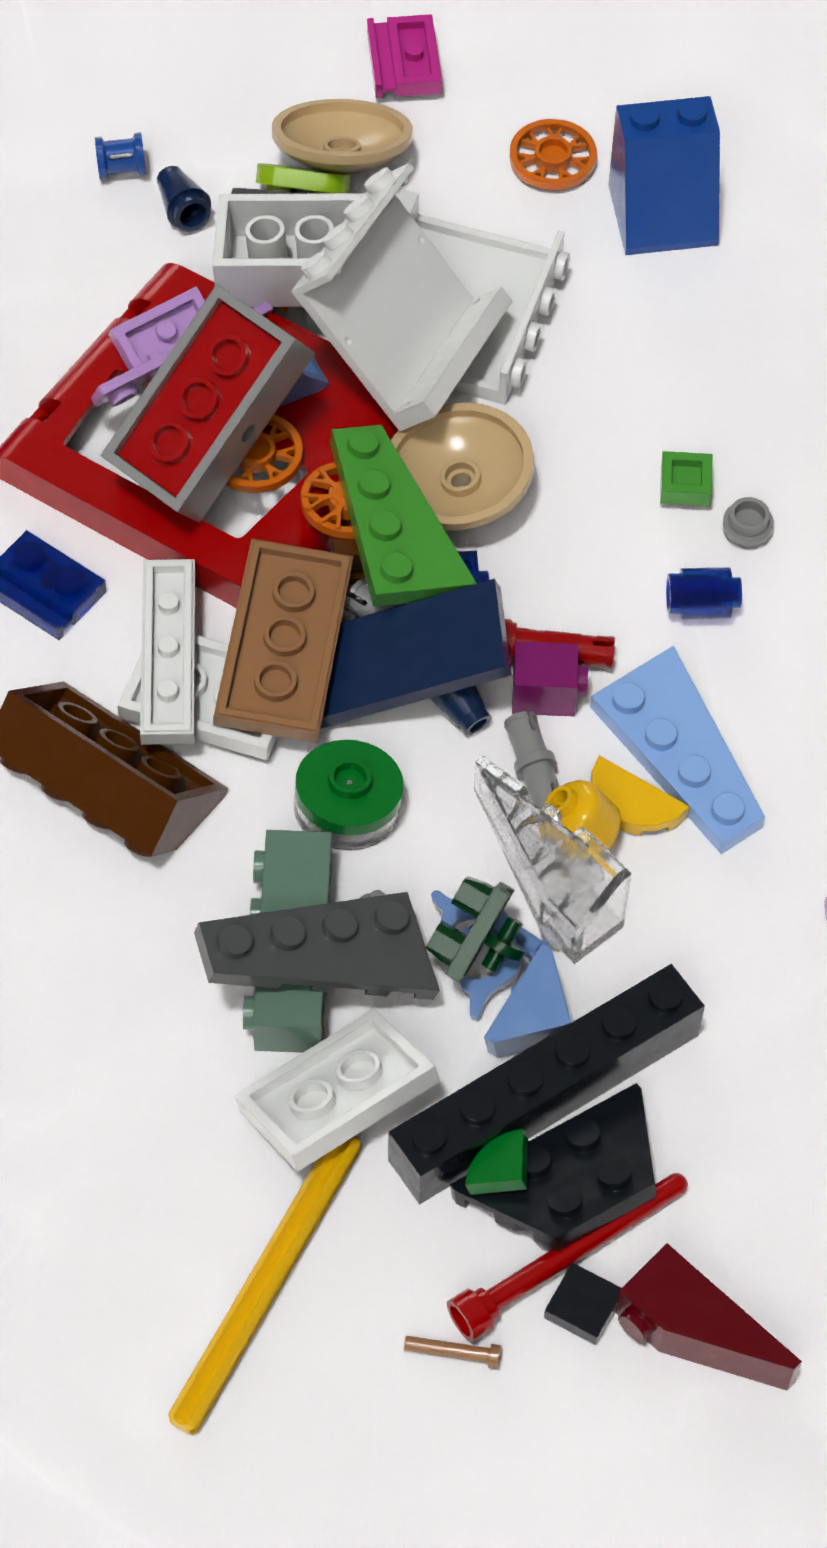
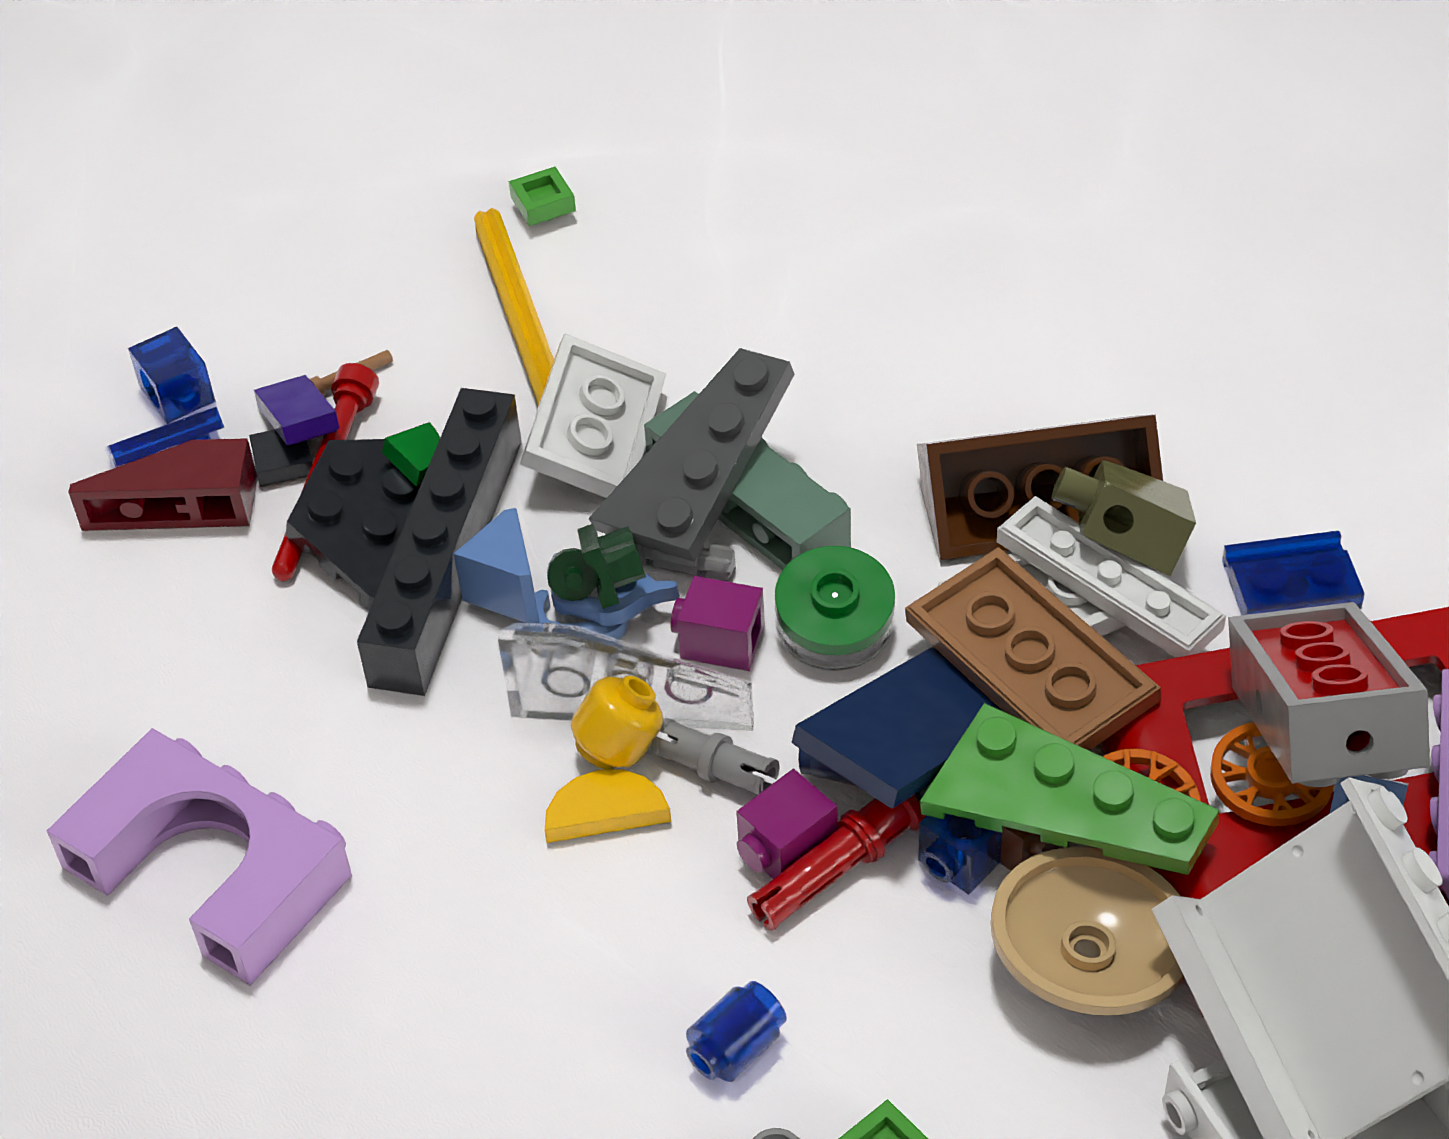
camera: 140 degrees right, 10 degrees down
(107, 656) = (1146, 526): none -> olive torso
(115, 1397) = (542, 196): none -> bright green plate
(432, 848) = (719, 623): none -> magenta brick
(542, 1319) = (296, 410): none -> dark purple tile
(608, 1461) = (172, 374): none -> clear blue brick
(673, 1380) = (175, 433): none -> clear blue plate
(677, 742) = (636, 890): light blue wing -> none

